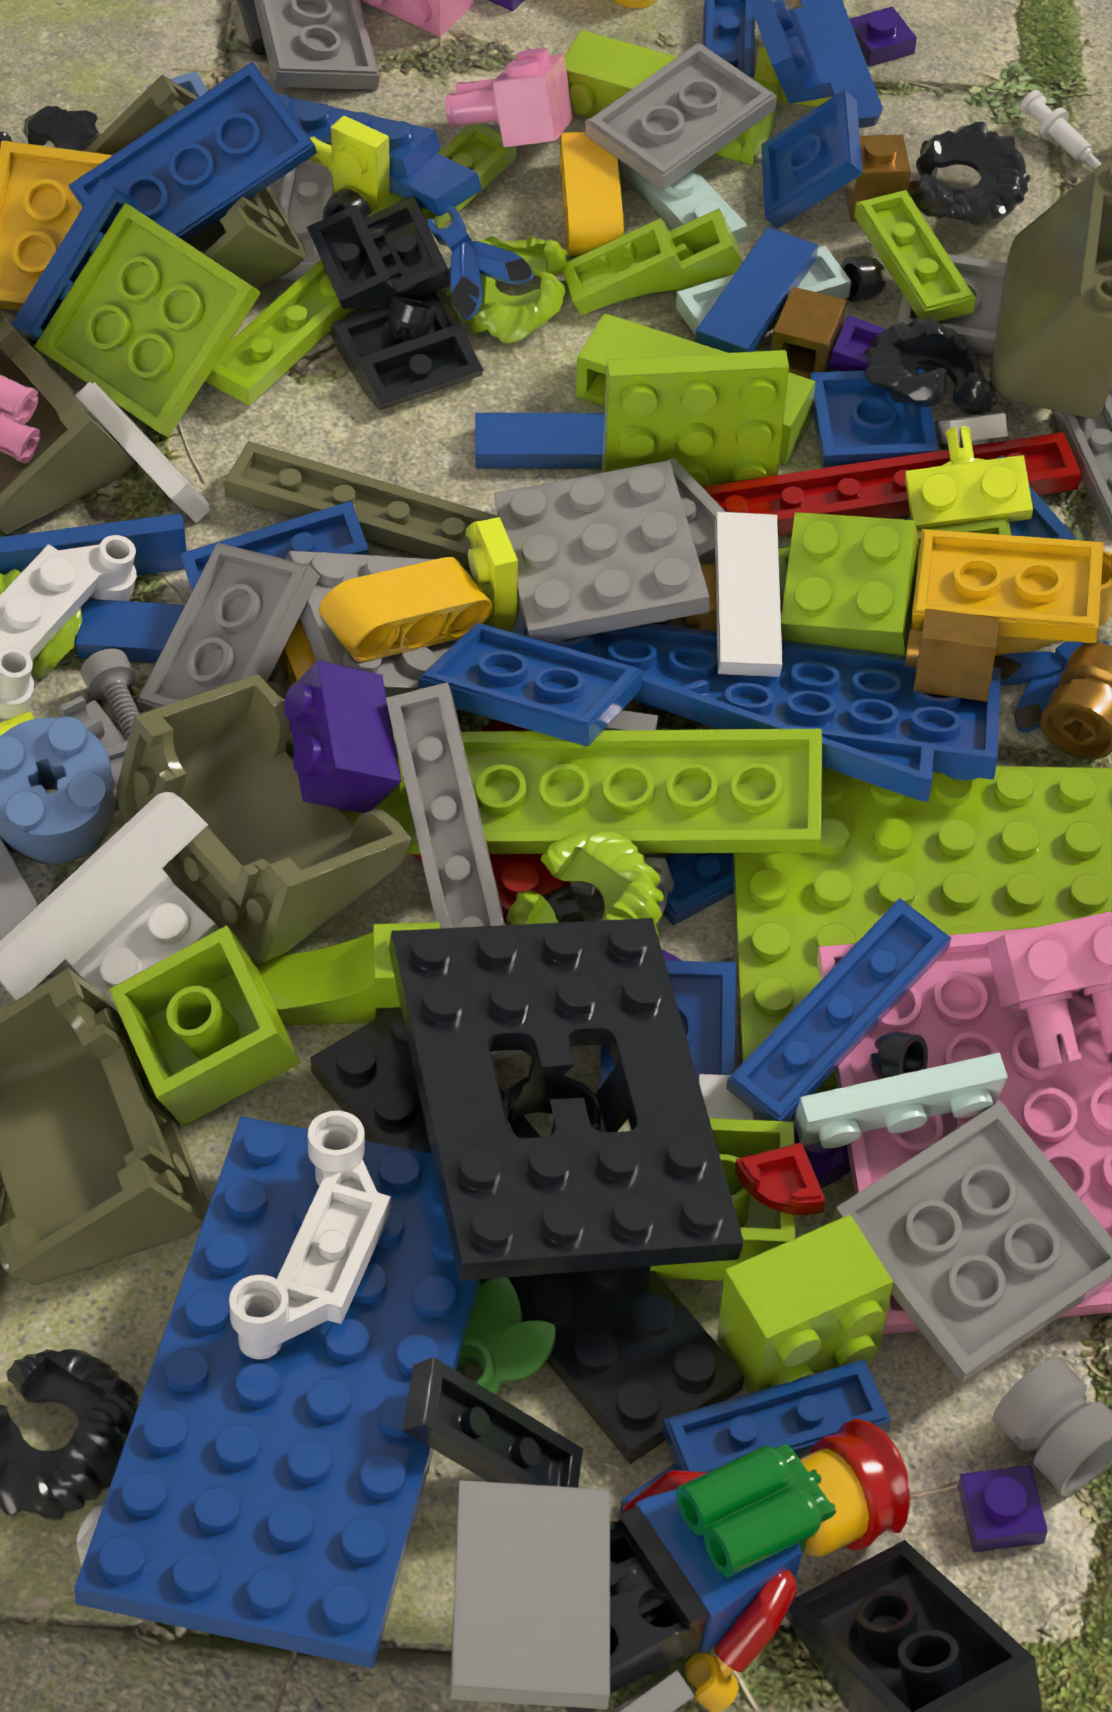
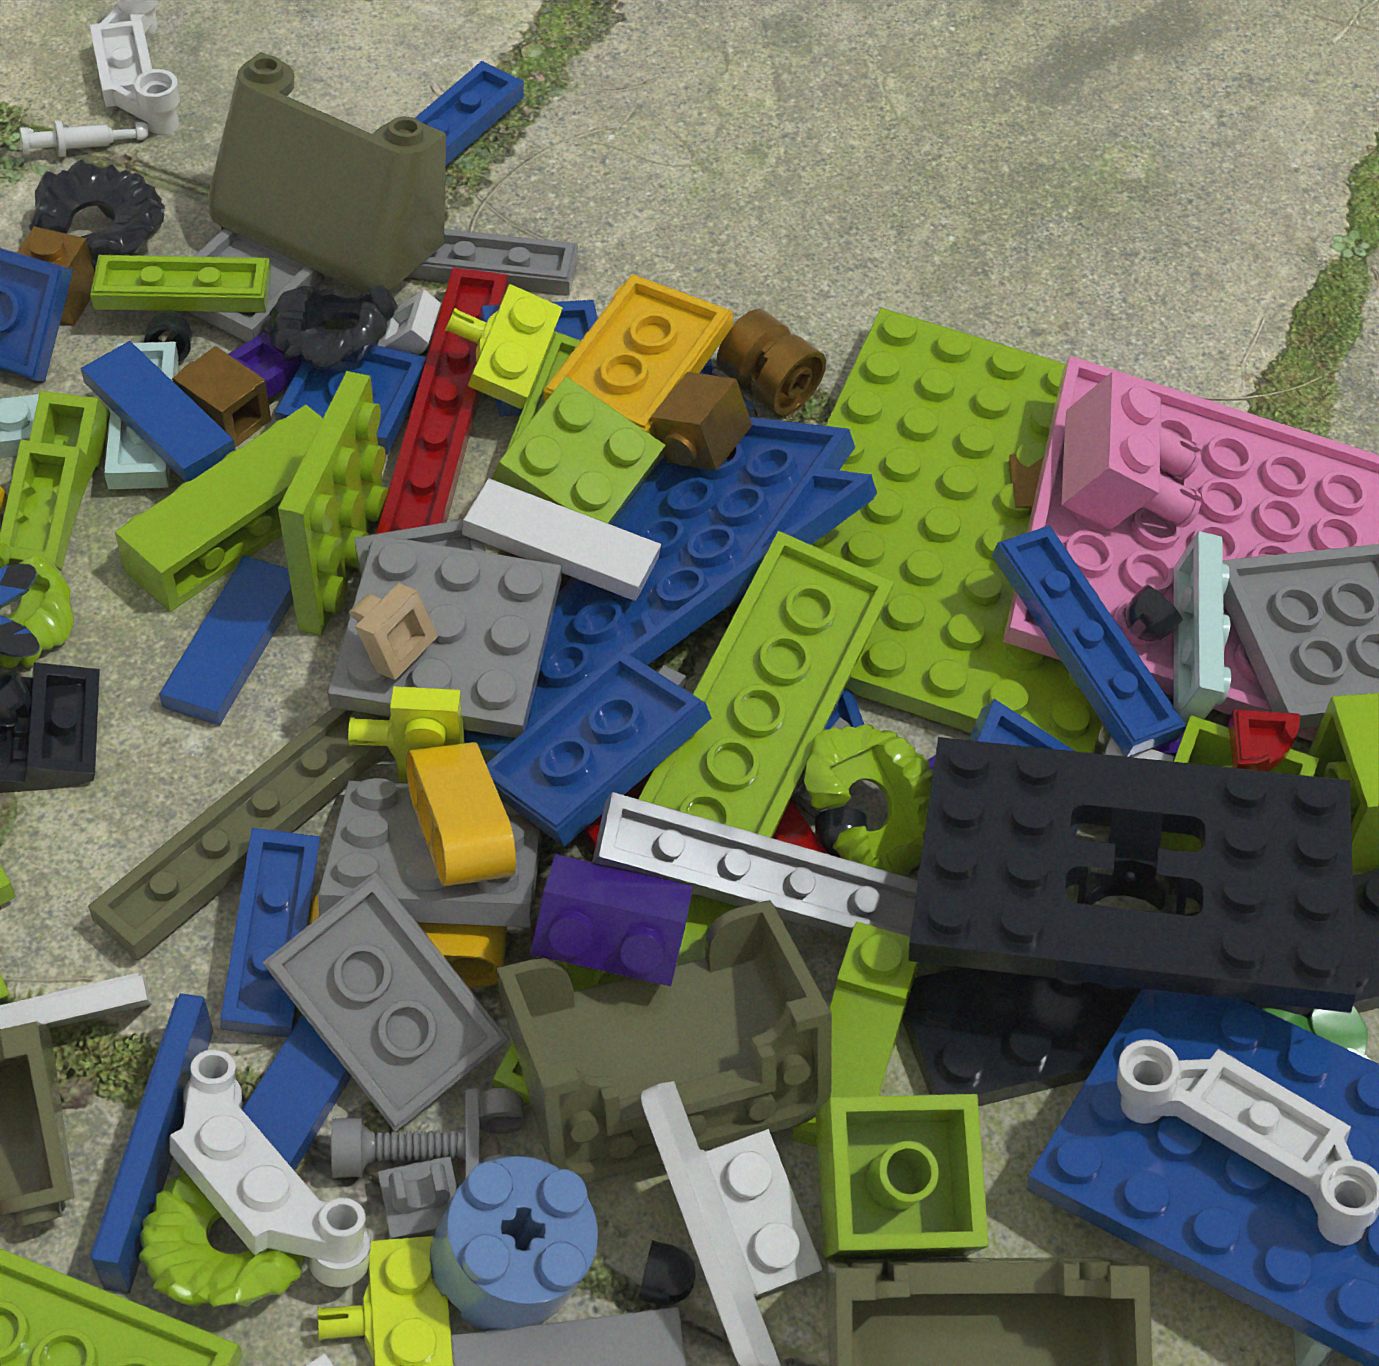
camera: 70 degrees left, 0 degrees up
(551, 494) = (393, 629): none -> tan tile

